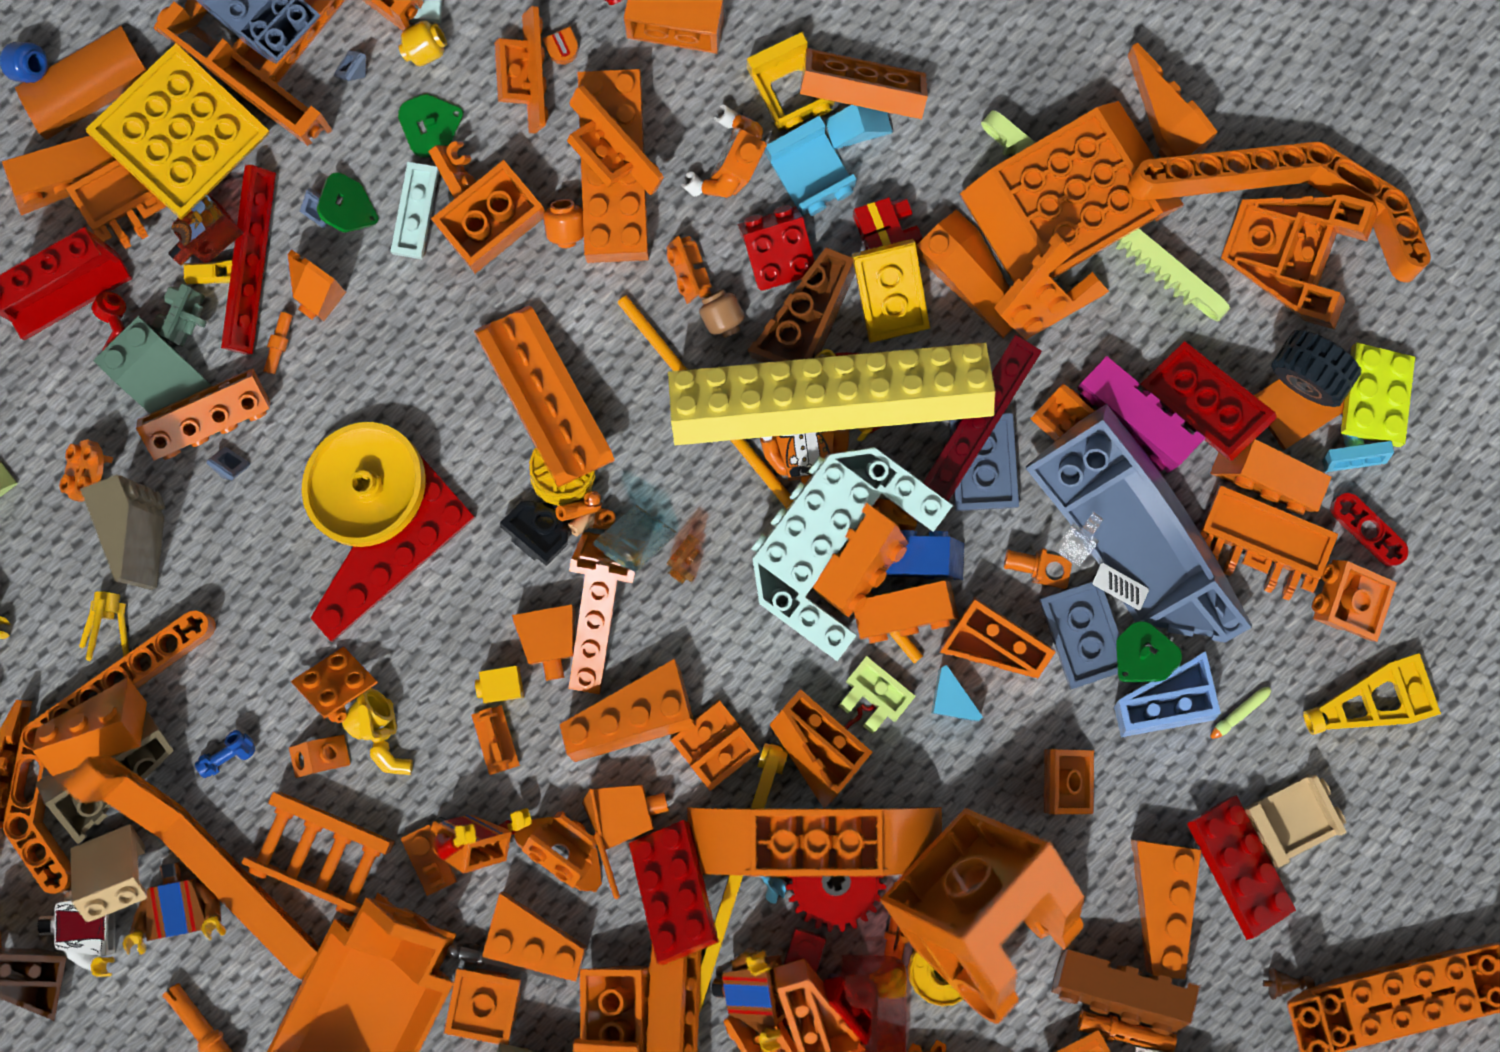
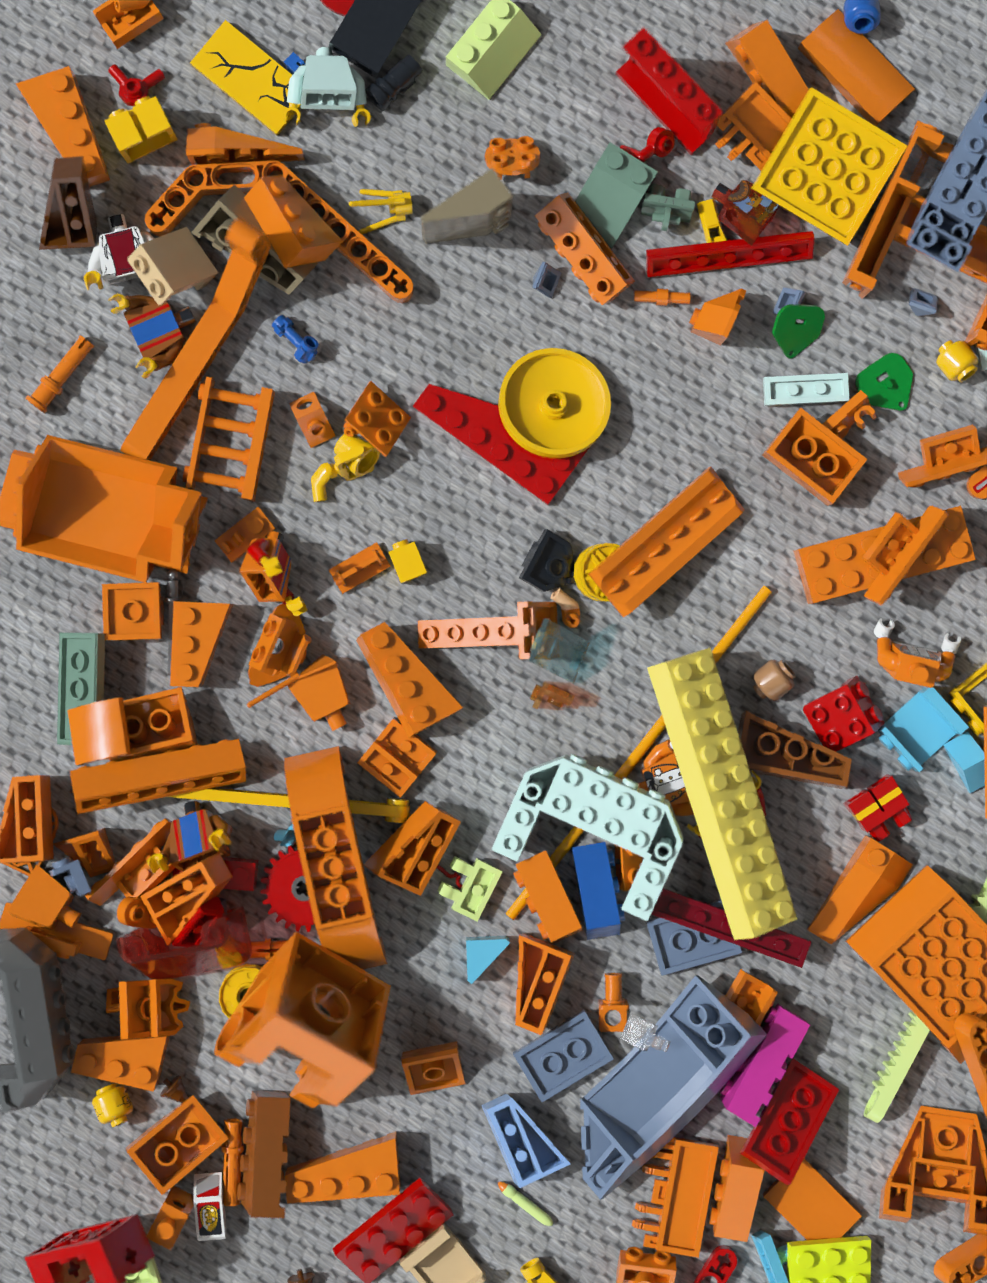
camera: 80 degrees right, 5 degrees up
(547, 637) = (456, 593): orange torso -> none
(564, 223) = (823, 524): orange head -> none
(573, 510) = (575, 595): orange arm -> none
(673, 892) = (263, 752): red plate -> none
(690, 282) = (817, 633): orange hinge -> none
(862, 562) = (580, 852): orange wedge -> none
(891, 290) = (826, 824): yellow tile -> none
(1040, 300) = (847, 959): orange wing -> none
(1120, 586) = (611, 1078): white sticker -> none
(1139, 661) = (550, 1107): green piece -> none
(1316, 368) = (838, 1210): black wheel -> none

